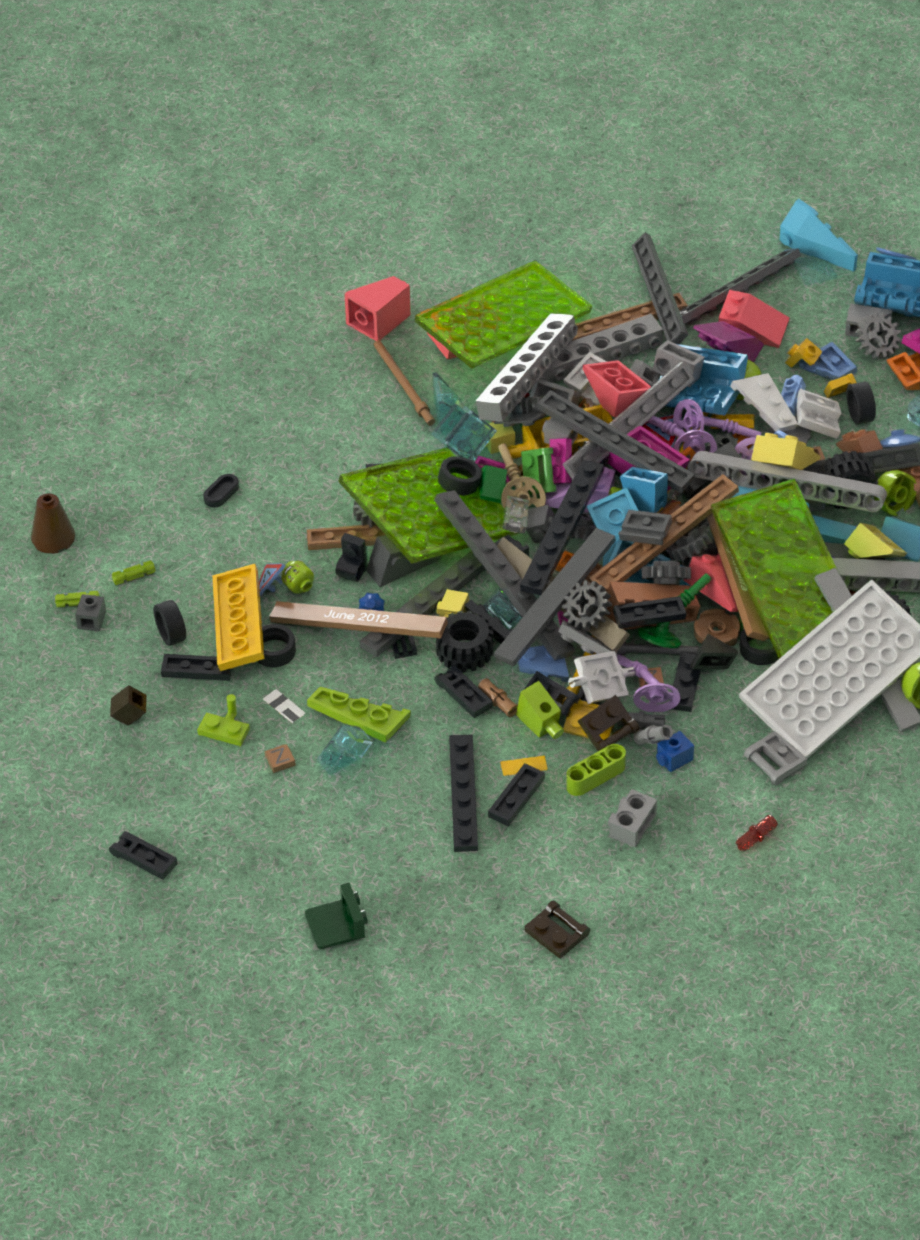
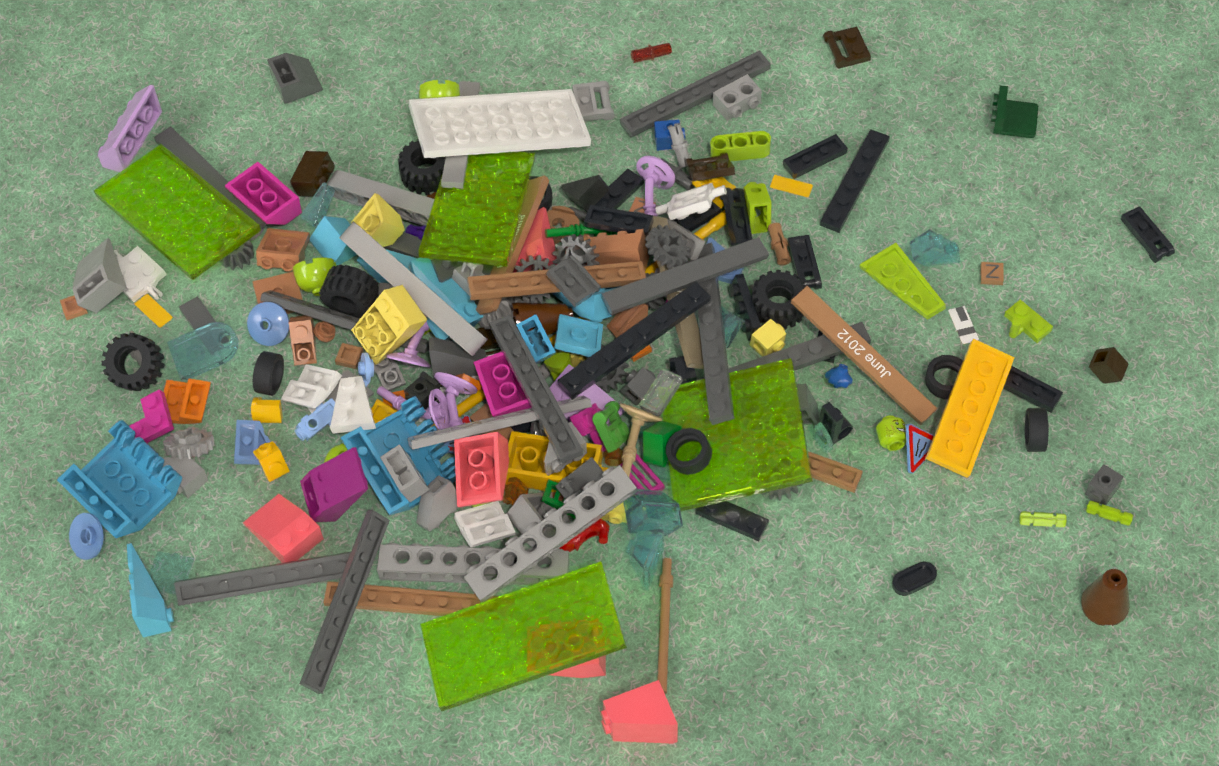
camera: 150 degrees left, 10 degrees up
(677, 809) = (693, 94): none -> dark grey plate

